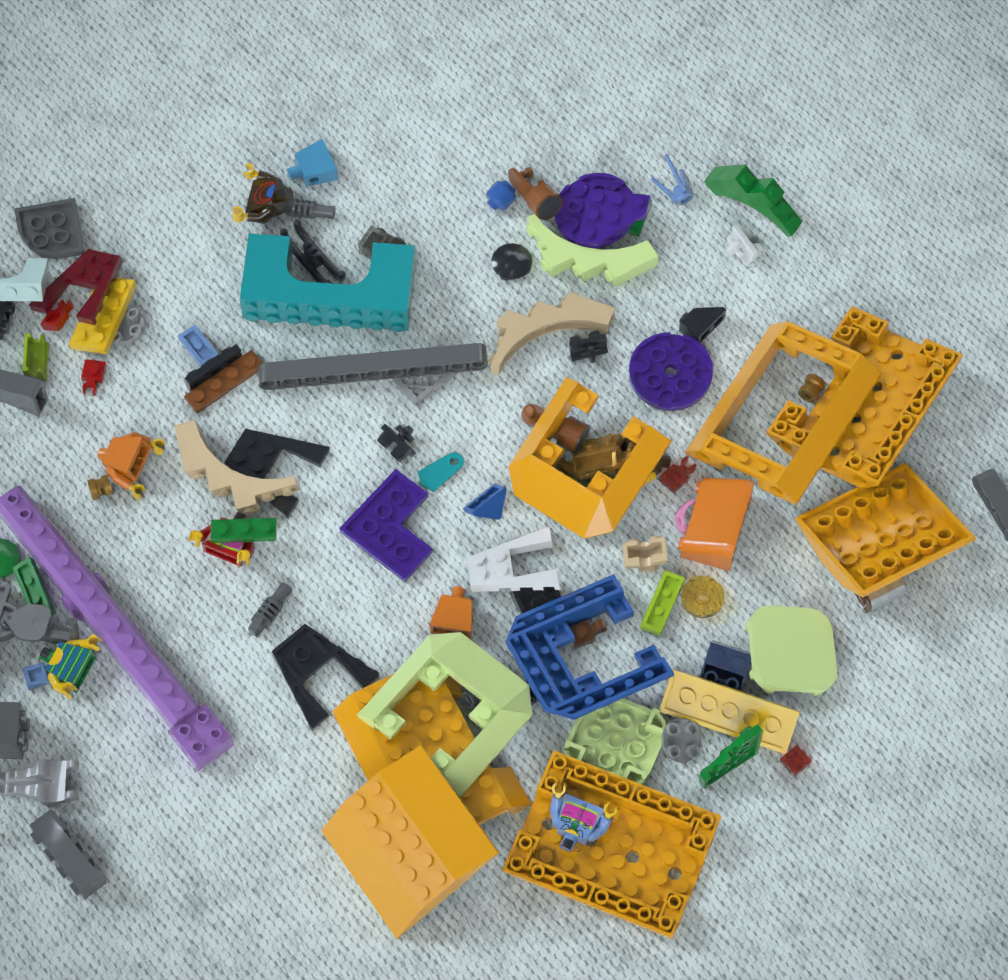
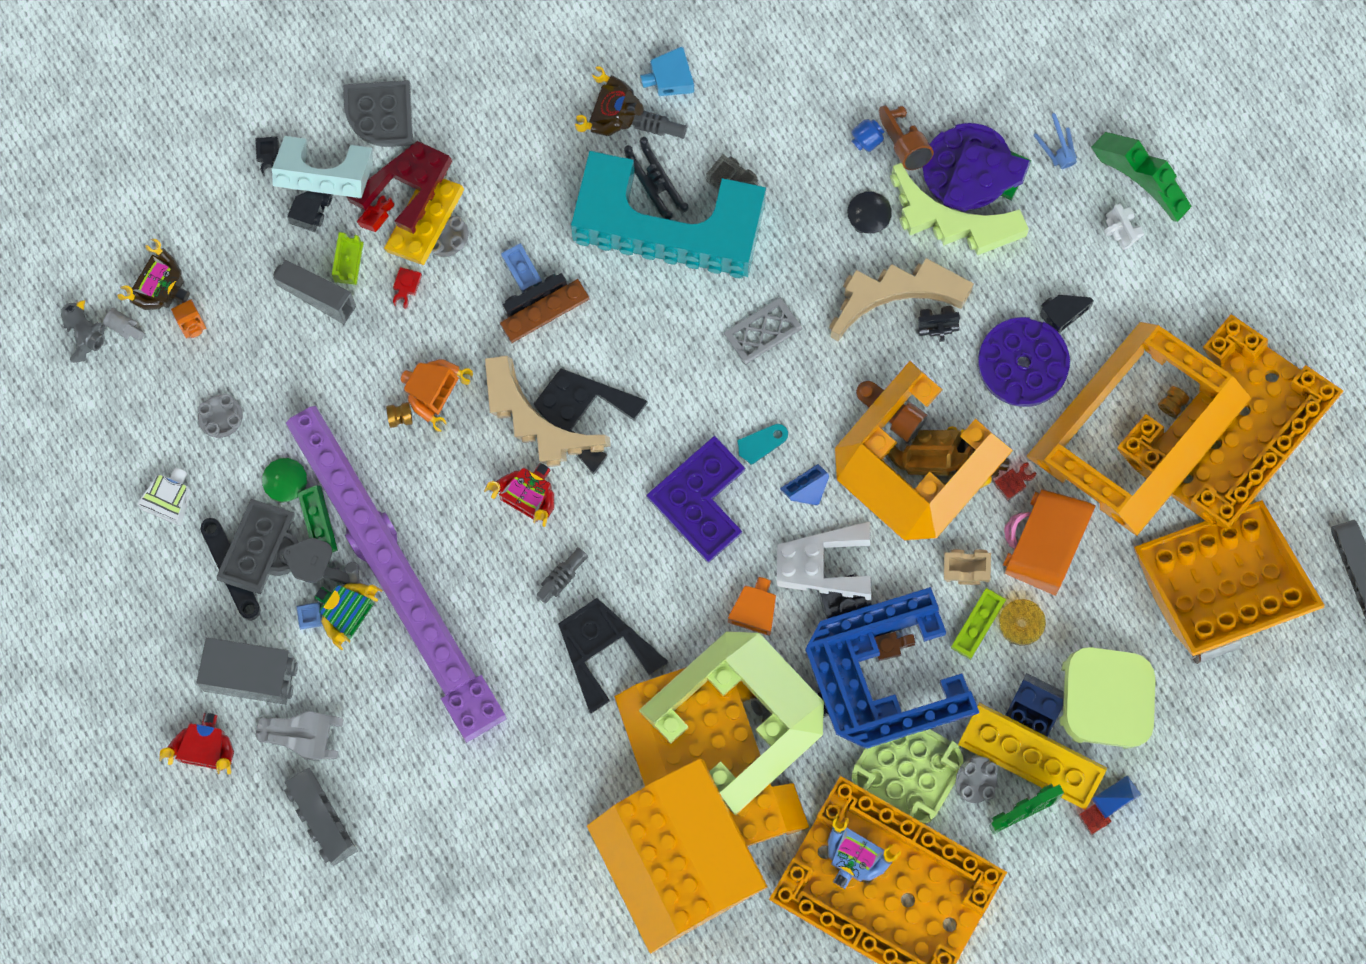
camera: 10 degrees right, 10 degrees up
(243, 530) = (544, 486): green plate -> none
(372, 366) = (705, 316): dark grey beam -> none
(402, 449) = (714, 397): black hips -> none
(812, 739) = (1116, 796): none -> blue slope

